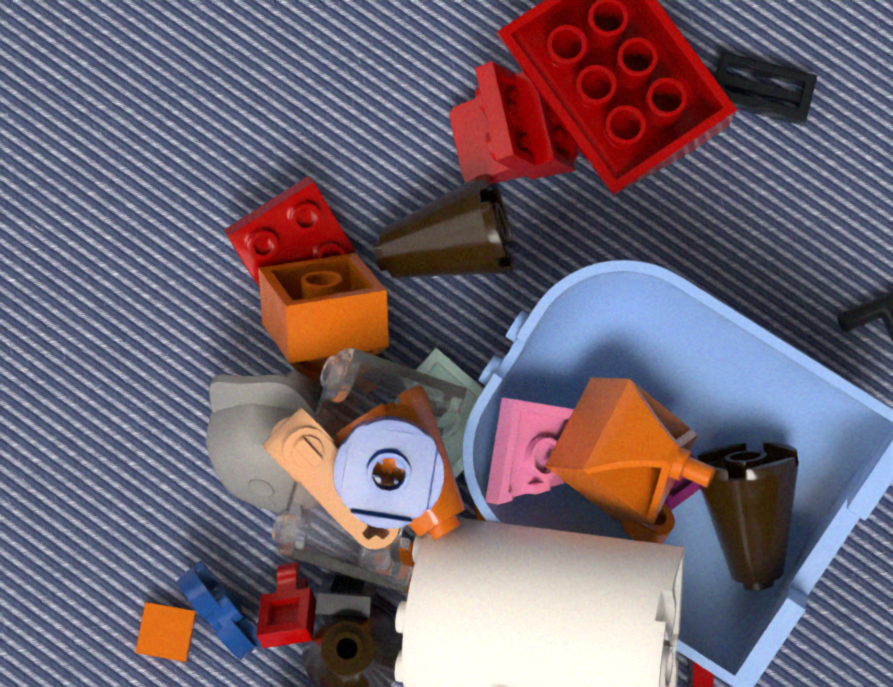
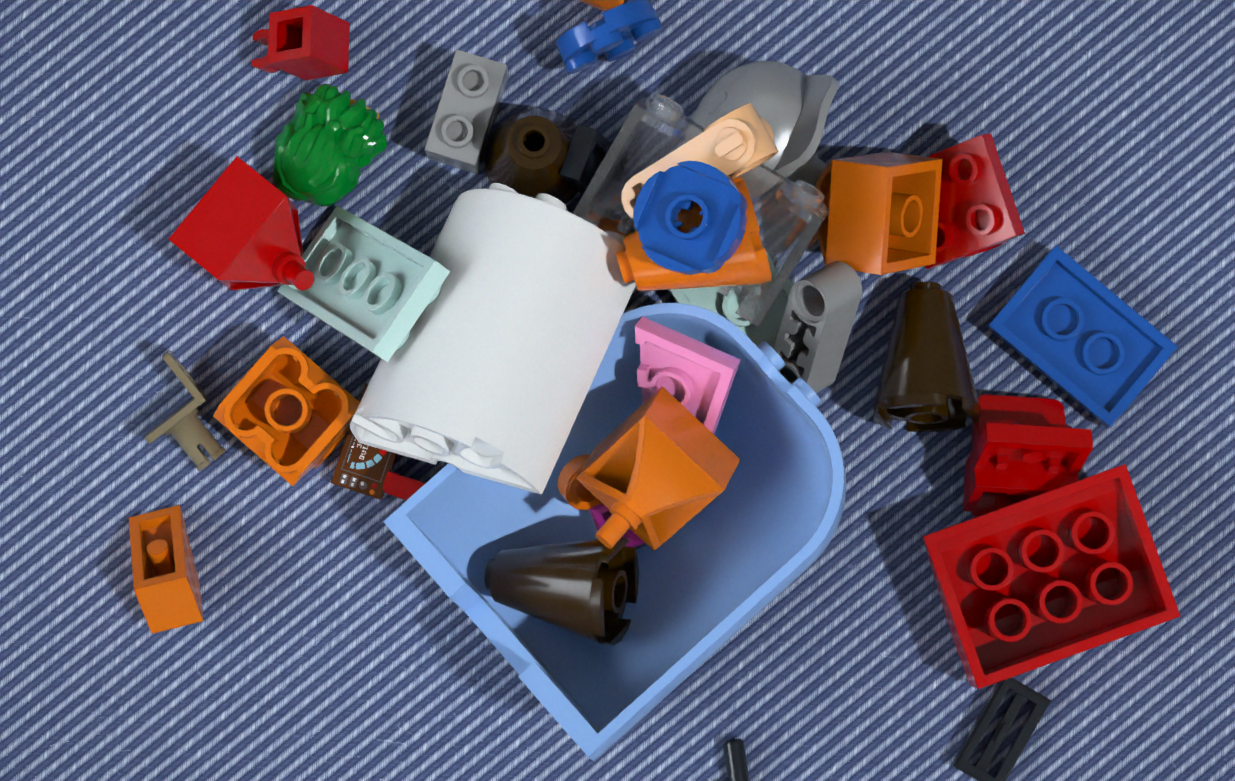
camera: 100 degrees right, 5 degrees up
(289, 613) = (589, 100): red plate -> none
(386, 106) = (1082, 337): none -> blue plate
(445, 339) = (818, 324): none -> light grey beam

